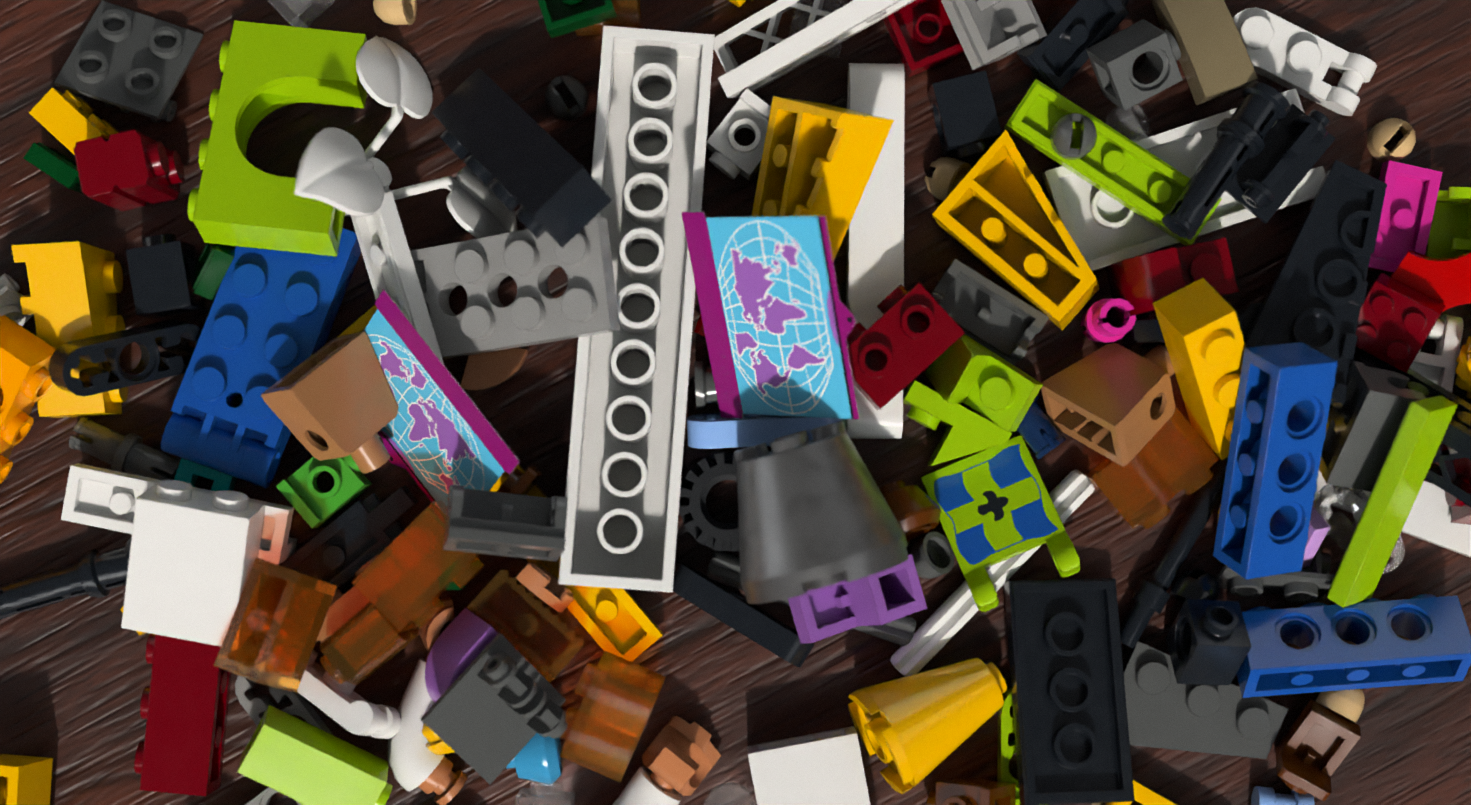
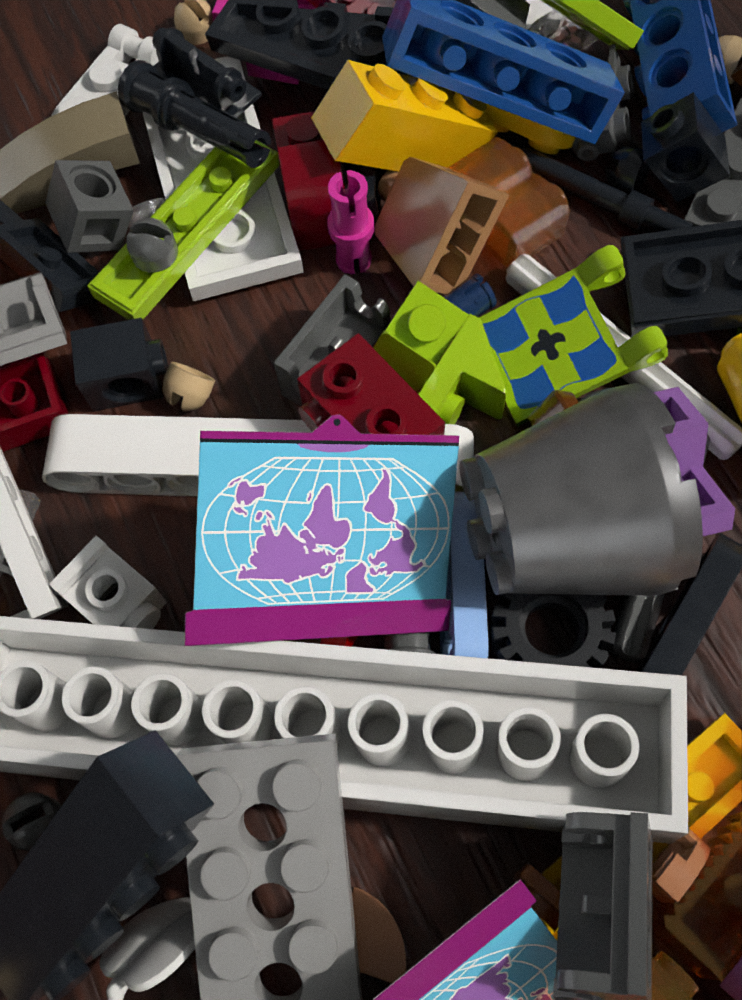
camera: 90 degrees left, 20 degrees down
(817, 162) = (132, 493): yellow wedge -> none
(1017, 234) = (255, 300): yellow wedge -> none

